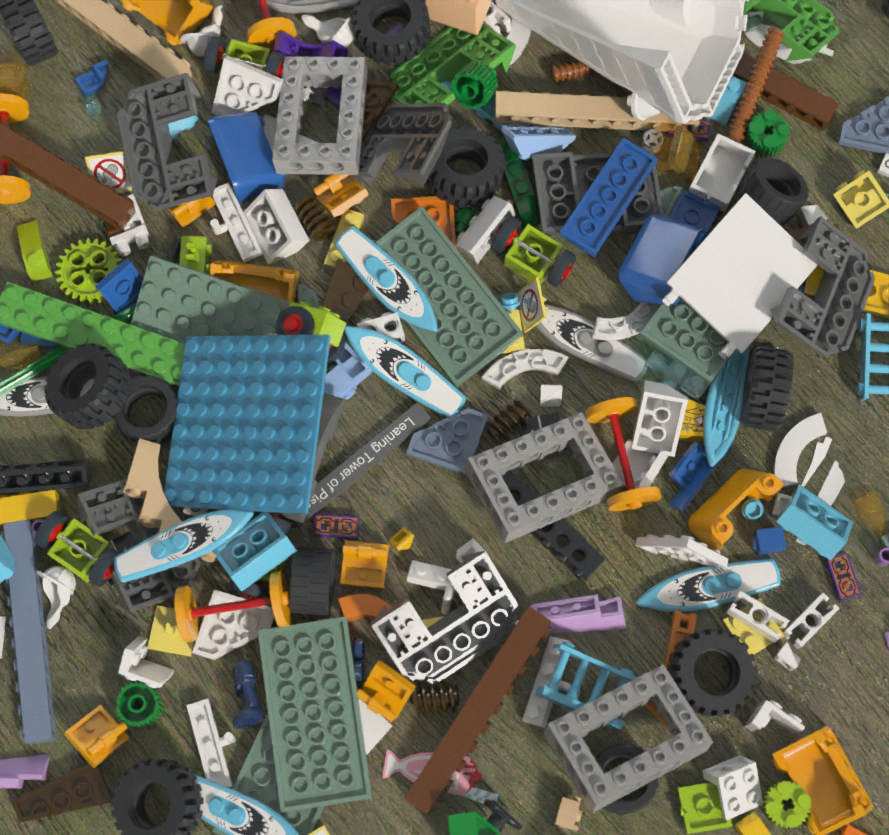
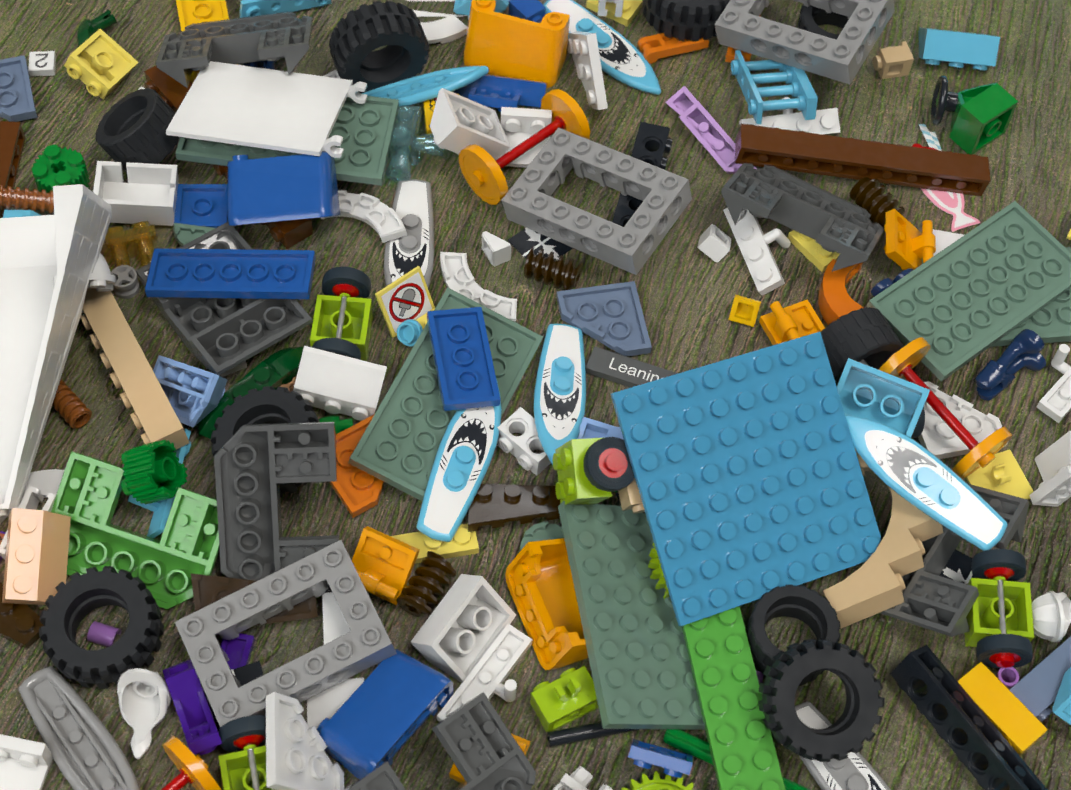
camera: 125 degrees left, 15 degrees down
(456, 309) = (463, 359): none -> blue plate

